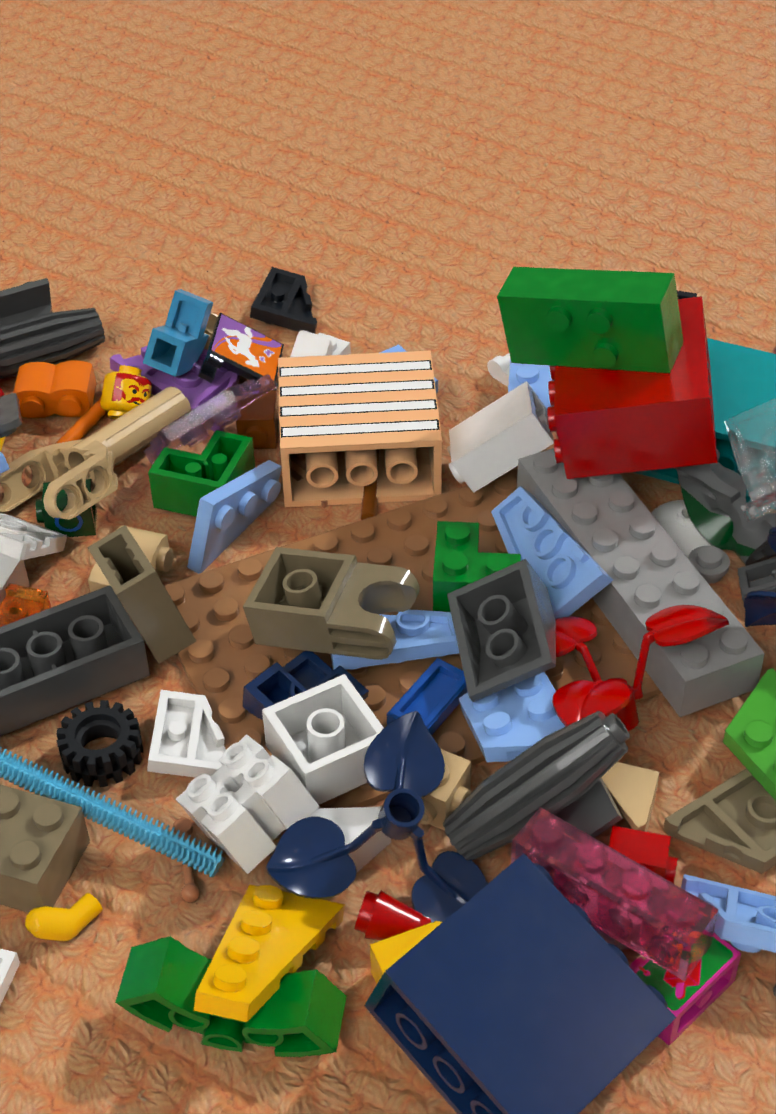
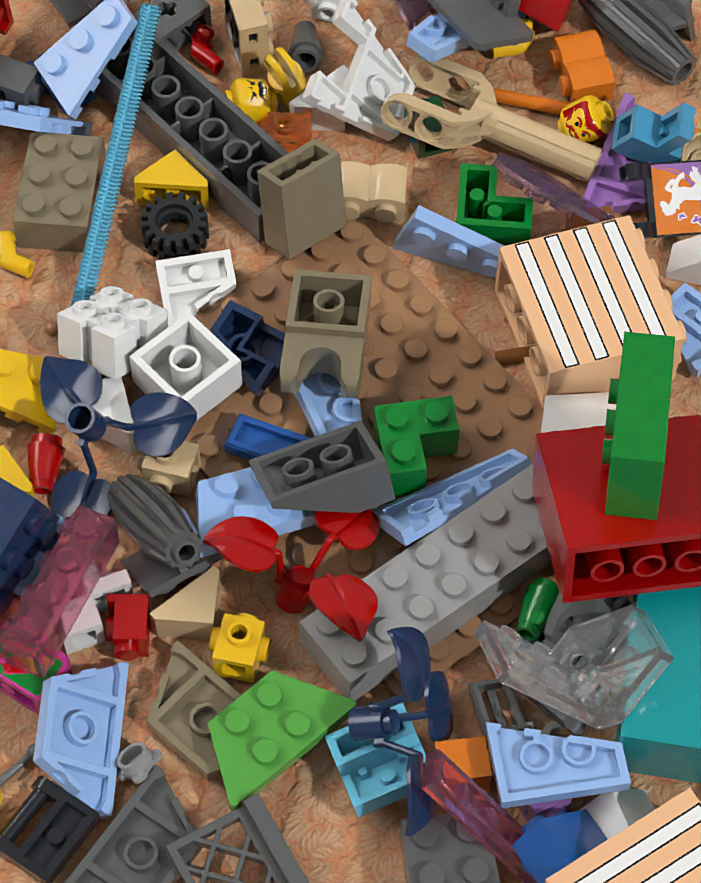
camera: 75 degrees right, 15 degrees up
(35, 723) = (172, 175): none -> yellow slope
(679, 524) = (535, 608): none -> green cone
(685, 760) = (239, 646): none -> yellow brick

